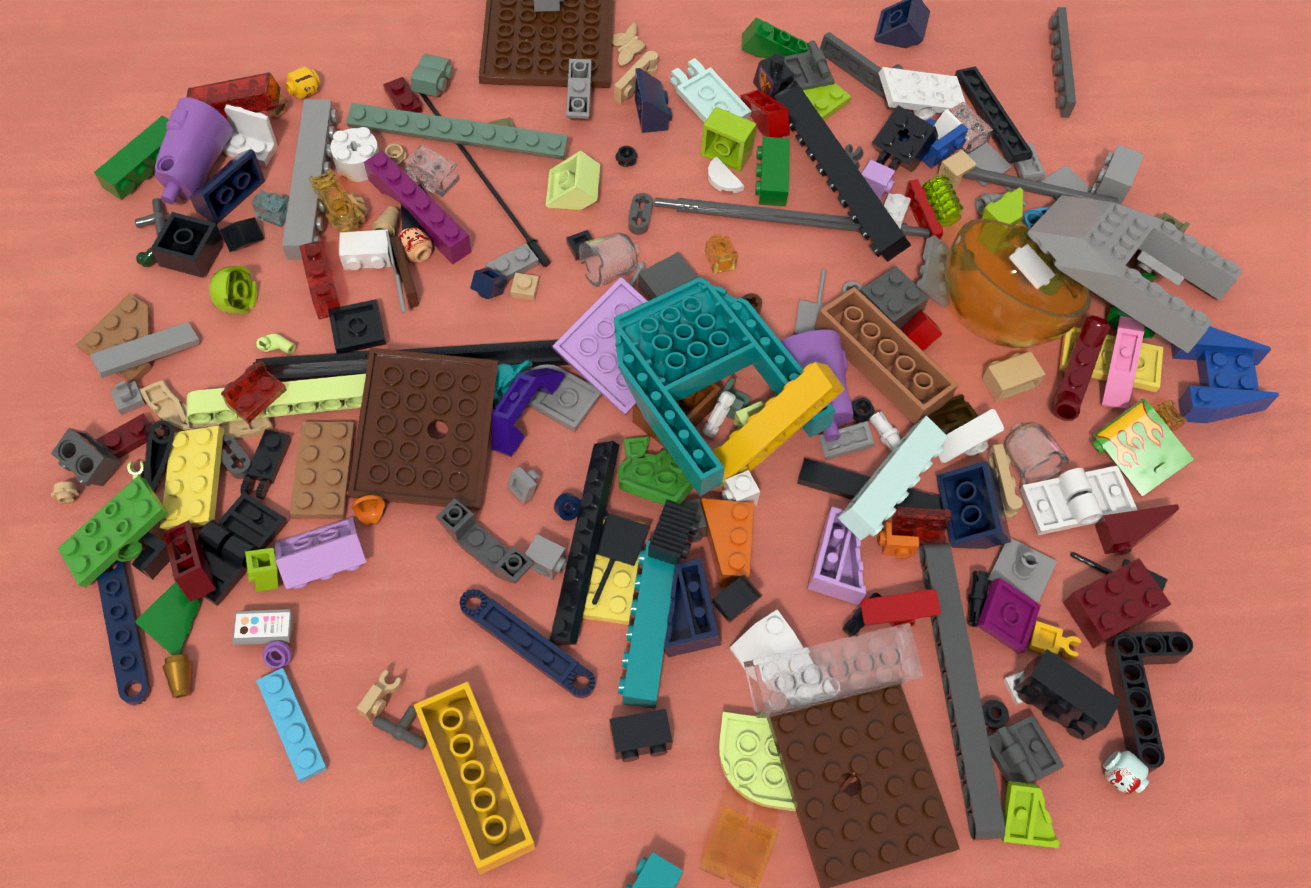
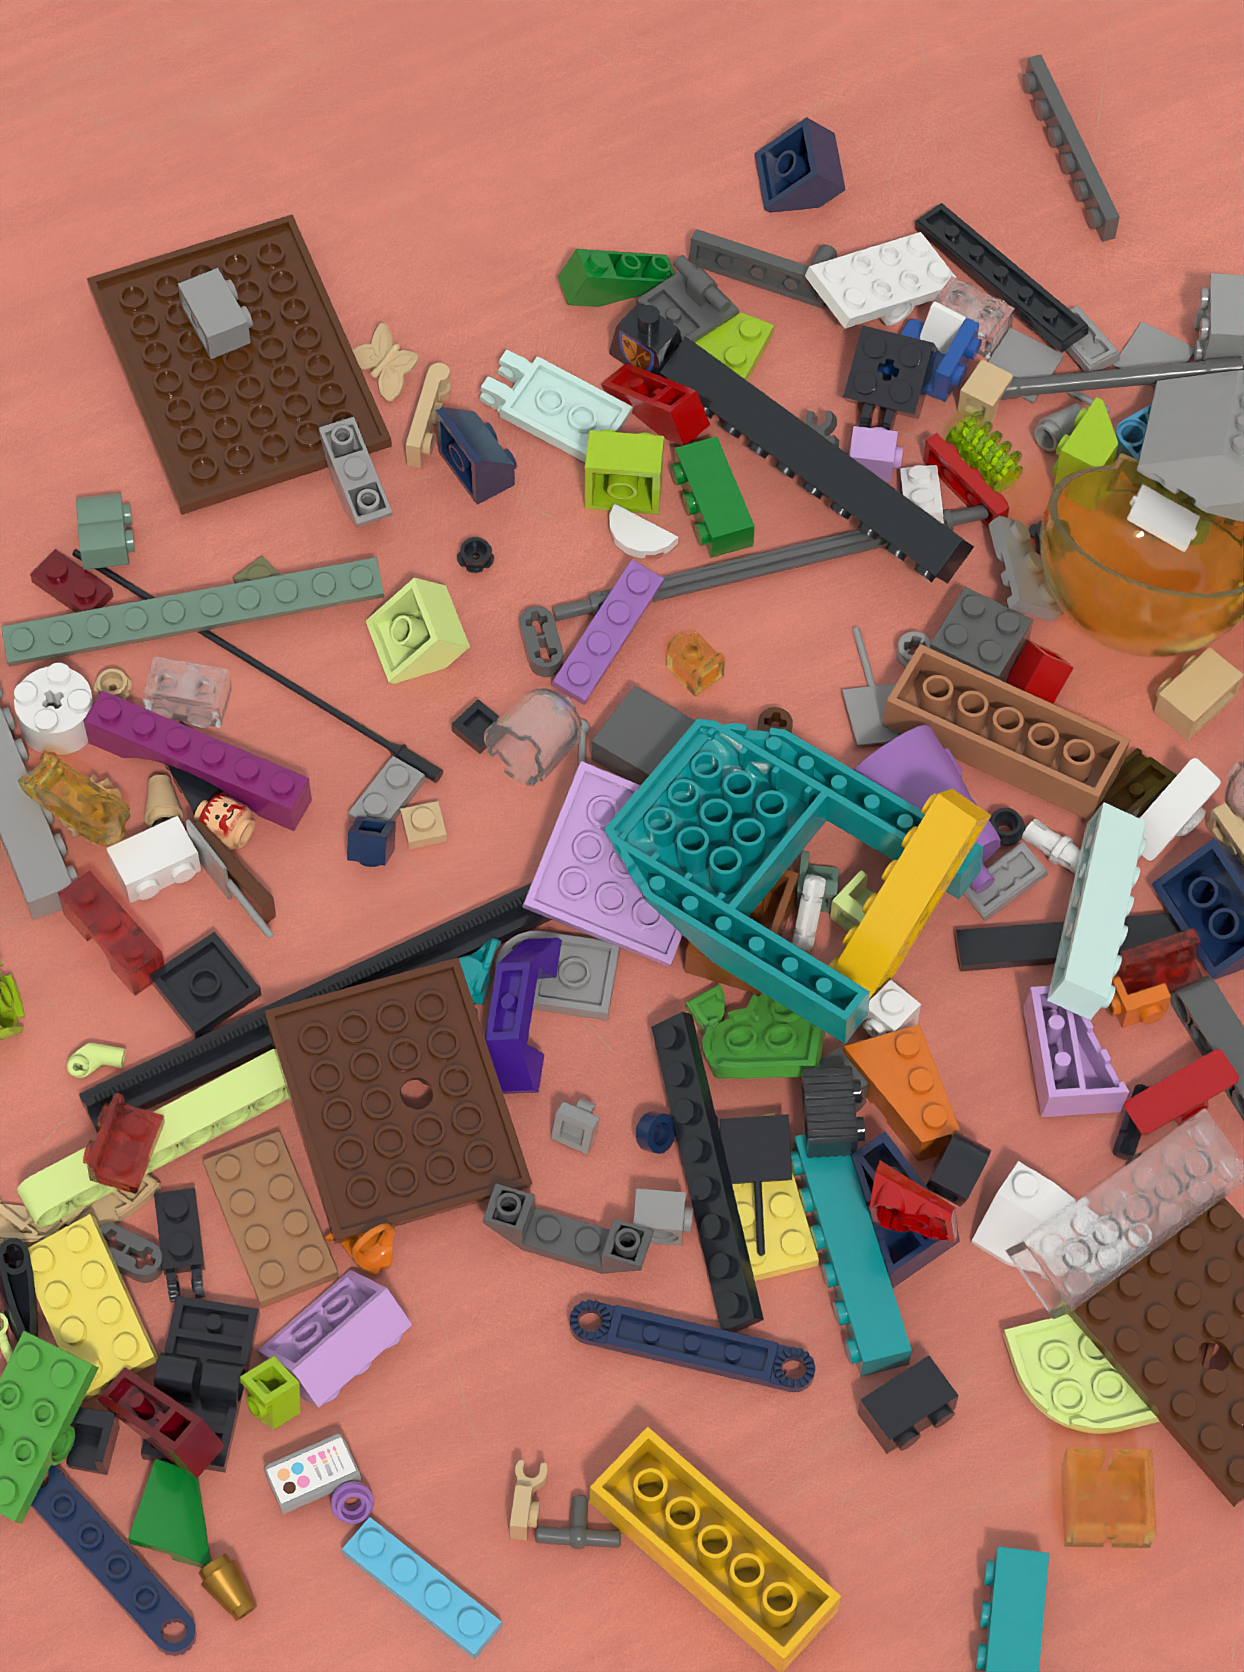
camera: 20 degrees left, 0 degrees up
(678, 220) = (608, 632): none -> medium lavender plate
(689, 610) = (906, 1206): none -> red slope

